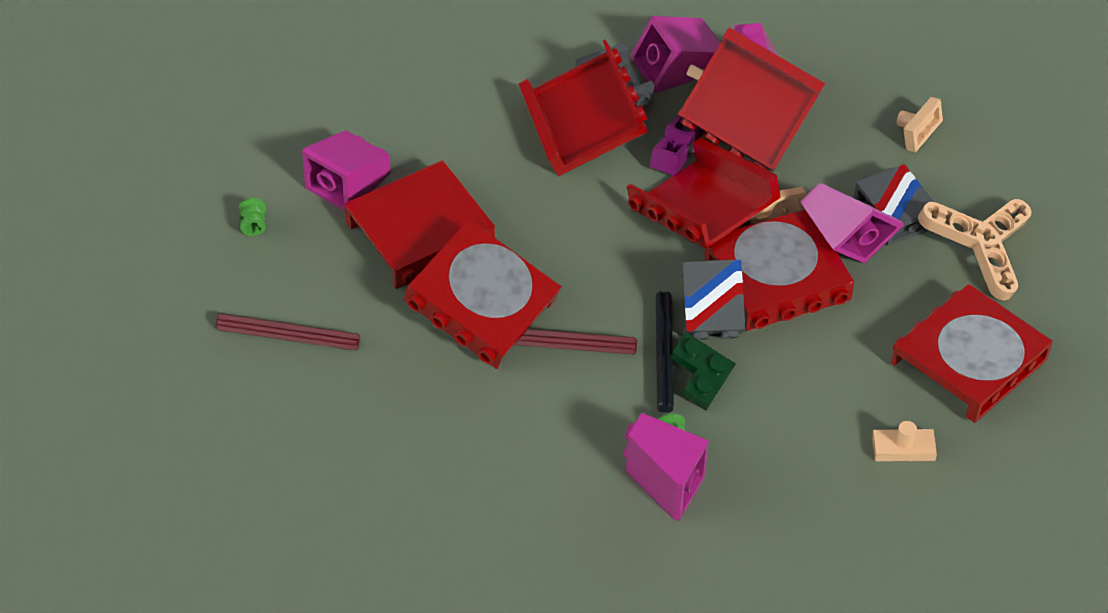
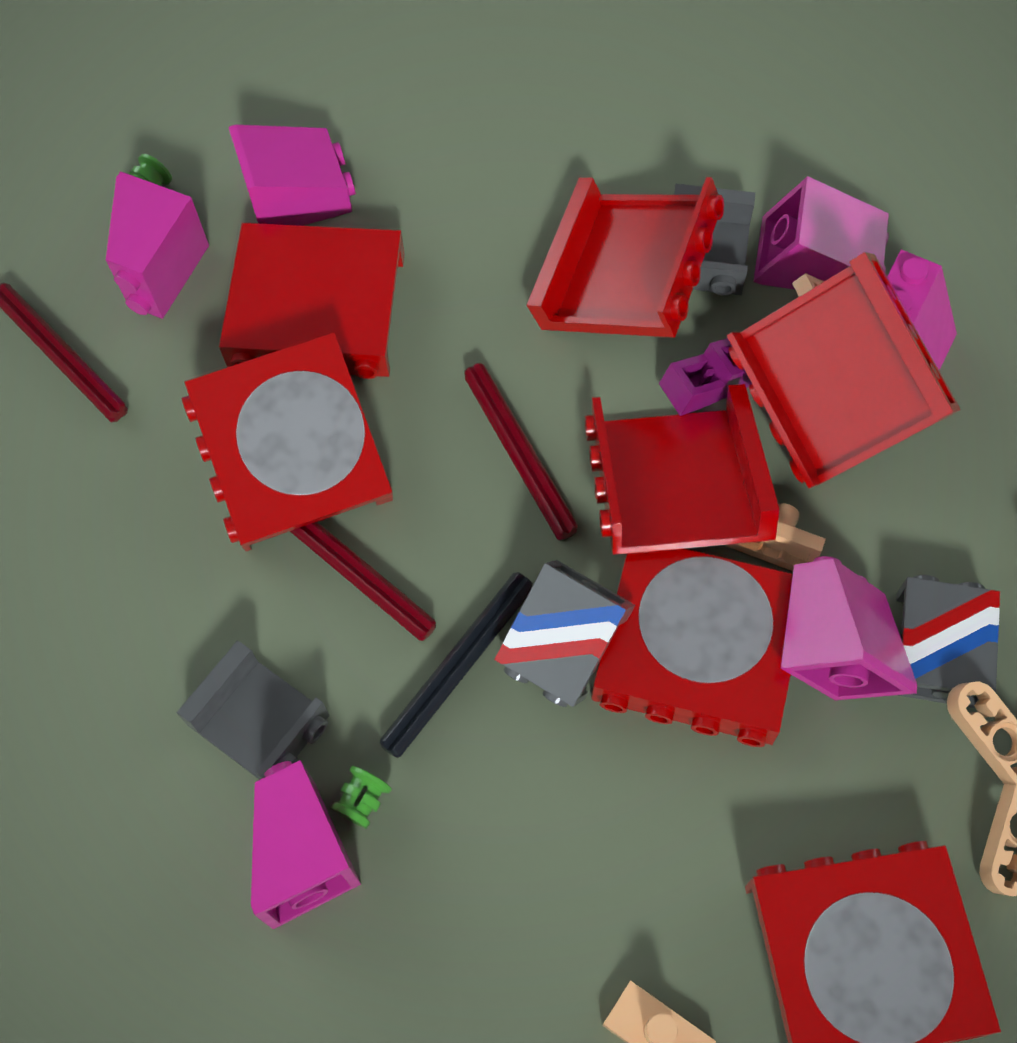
camera: 40 degrees right, 15 degrees up
(297, 240) = (152, 243): none -> dark pink slope
(583, 436) = (253, 713): none -> dark grey panel
(604, 237) = (521, 452): none -> dark red axle
(708, 366) = (490, 728): dark green plate -> none

